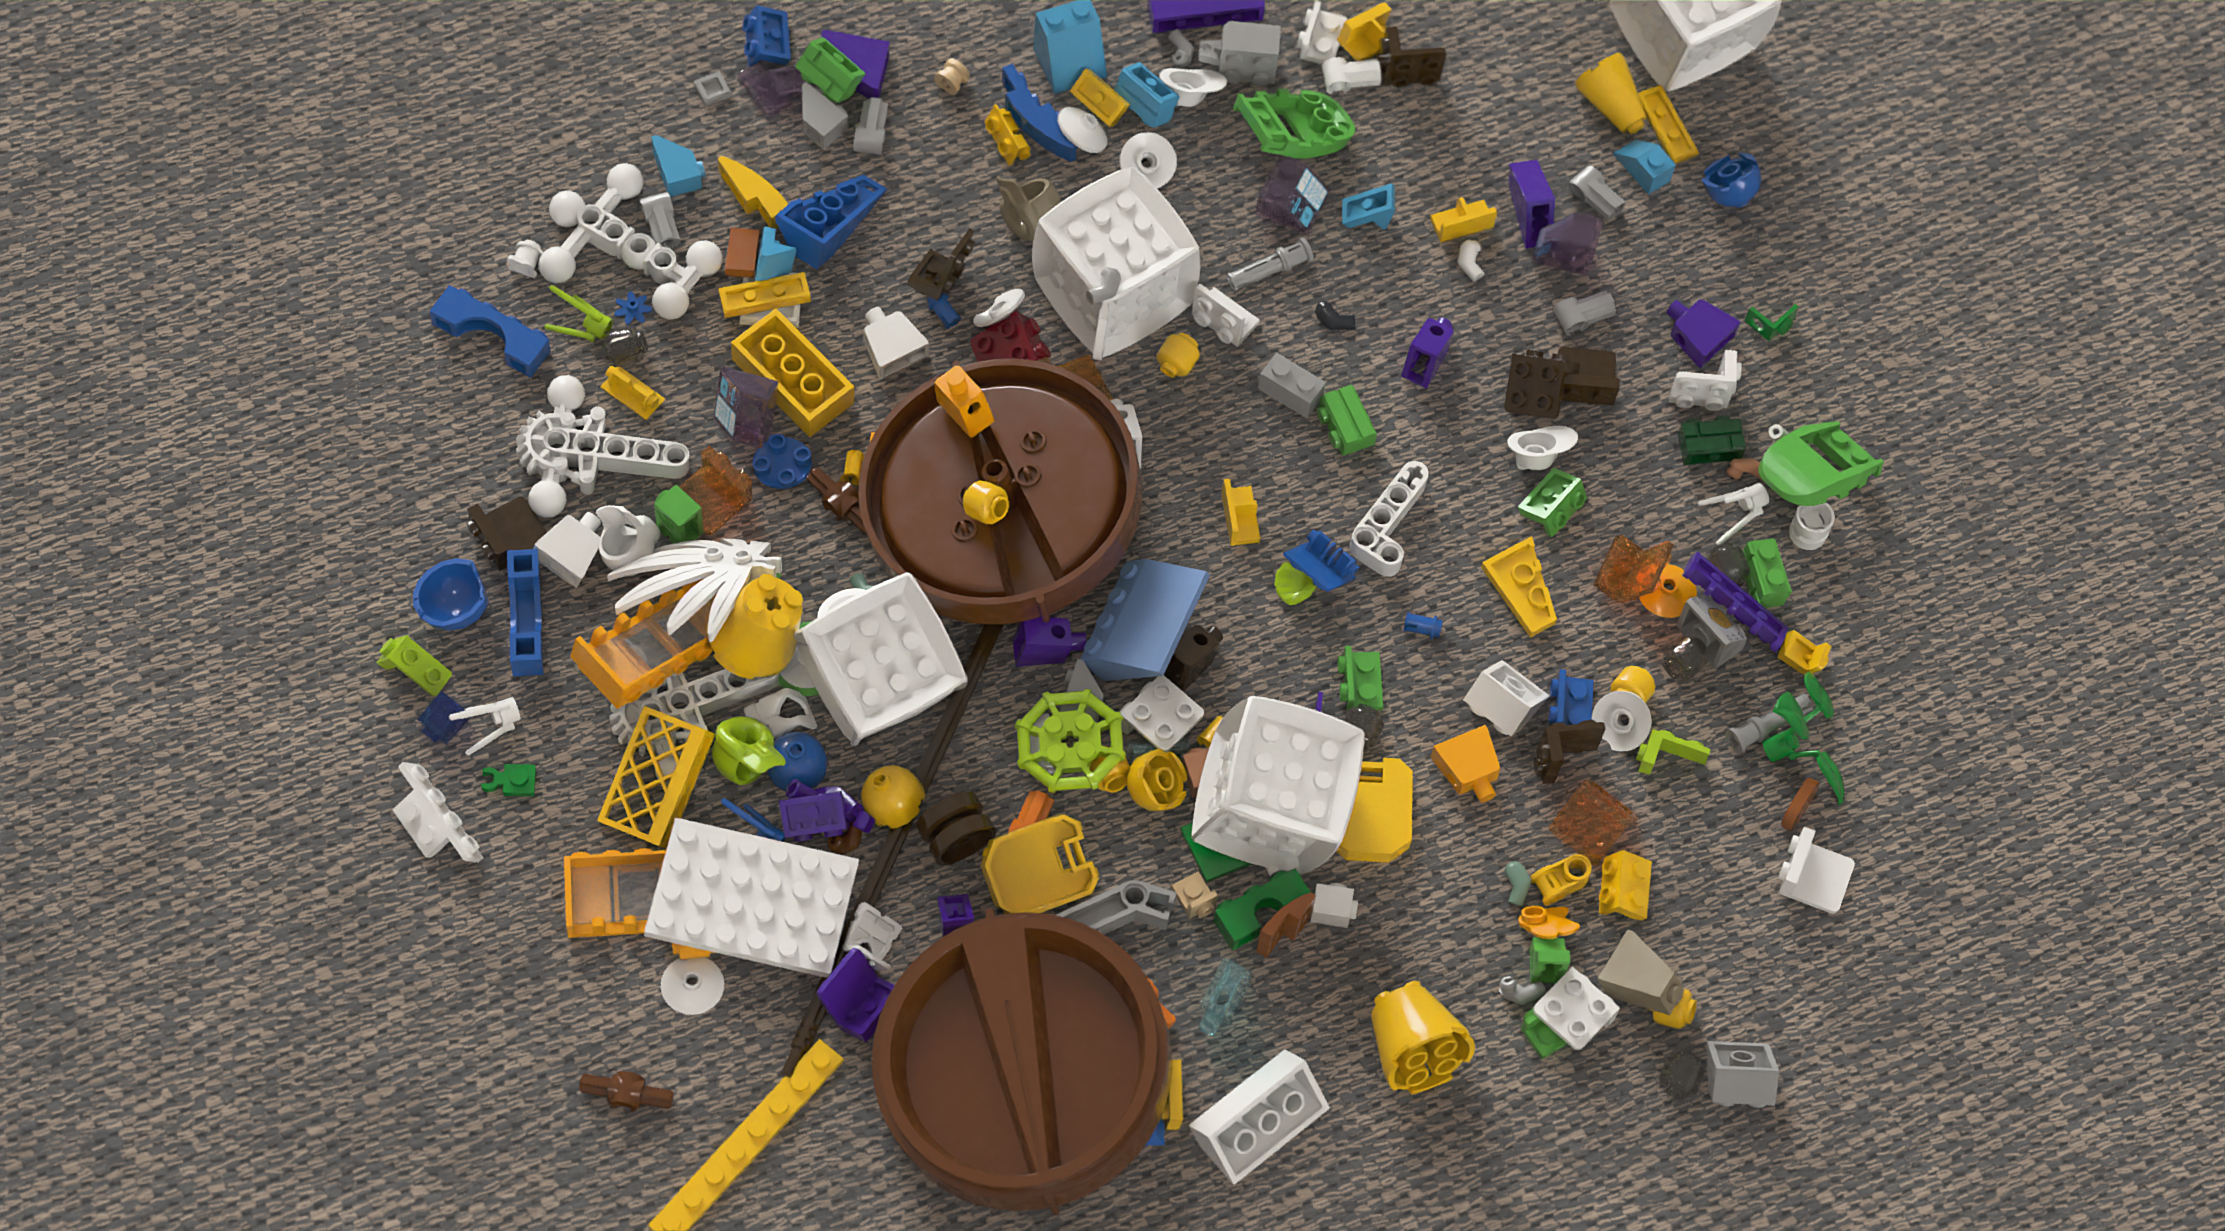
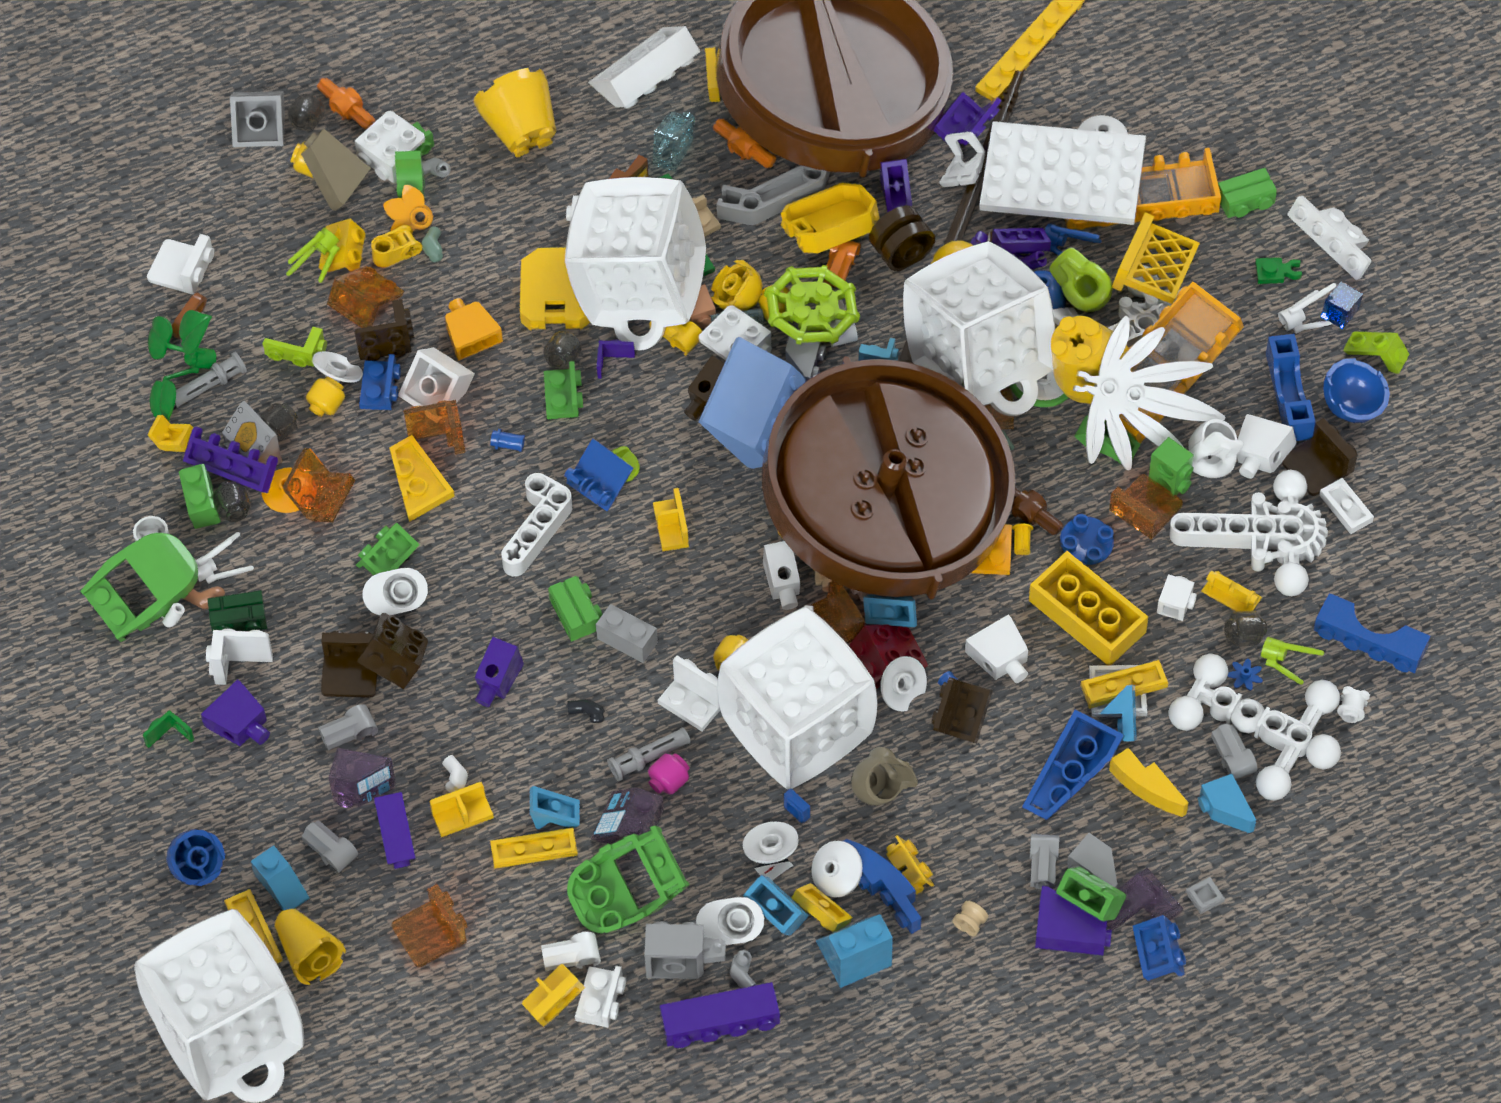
camera: 175 degrees left, 5 degrees down
(487, 479) = (1346, 505): none -> white plate
(529, 878) = (1247, 193): none -> bright green brick
(626, 1090) = (1142, 53): reddish brown axle -> none
(694, 385) = (1176, 597): none -> white brick
(742, 252) = (1151, 726): dark orange tile -> none
(745, 406) = (1124, 564): slope -> none
(956, 394) = (930, 523): light orange torso -> none
(985, 502) = (900, 432): yellow head -> none
(997, 691) = (874, 352): none -> medium azure bracket
(1108, 289) = (803, 612): light grey arm -> none
(1250, 236) = (668, 774): none -> dark pink head
(1407, 181) = (533, 848): none -> yellow tile
(1408, 66) = (512, 949): dark brown bracket -> none
(1490, 106) = (431, 928): none -> clear orange bracket
(1495, 636) = (435, 421): none -> clear orange bracket
(1633, 1087) = (346, 103): none -> orange axle
(1647, 868) = (323, 242): none -> lime plant

